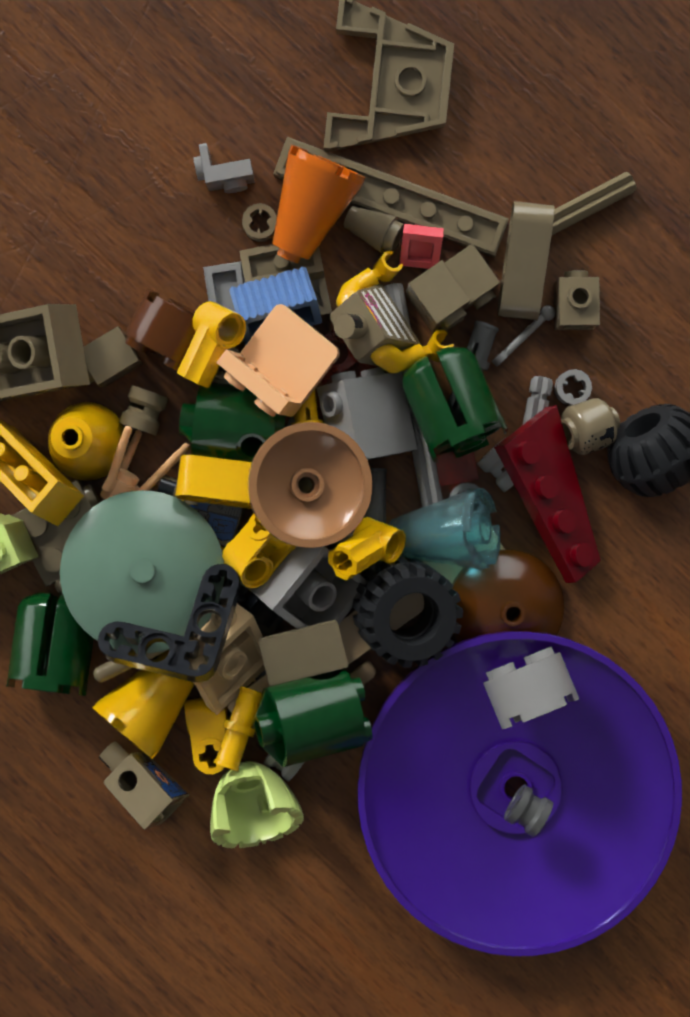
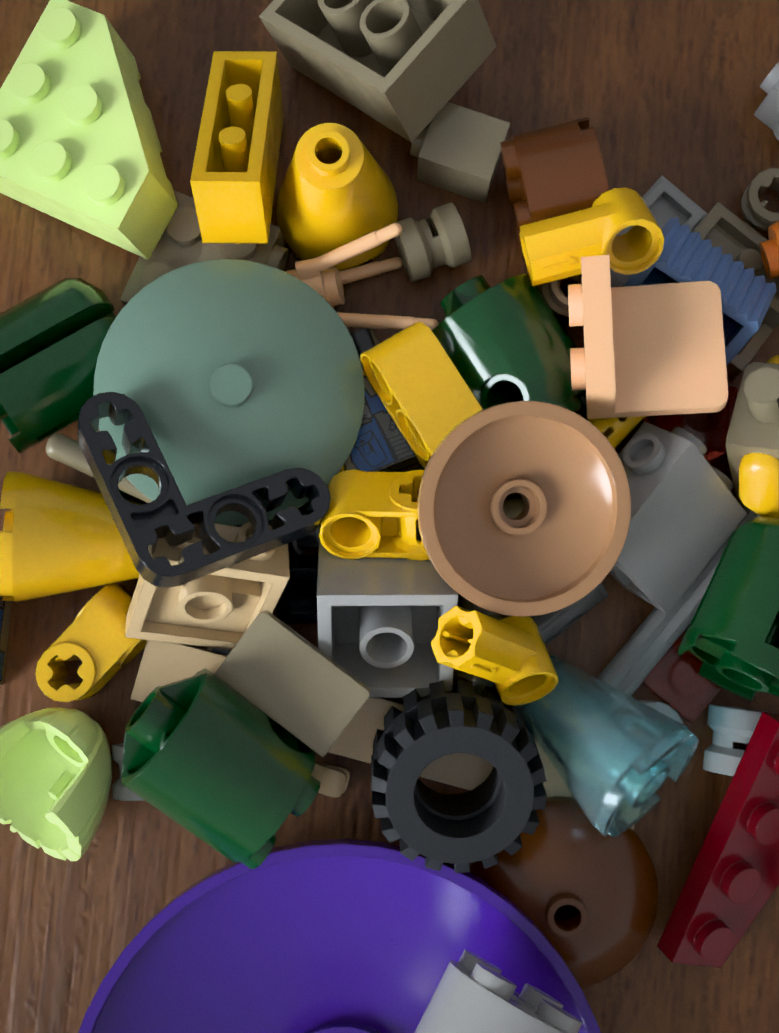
camera: 55 degrees right, 5 degrees down
(238, 729) = (126, 680): yellow pin -> none

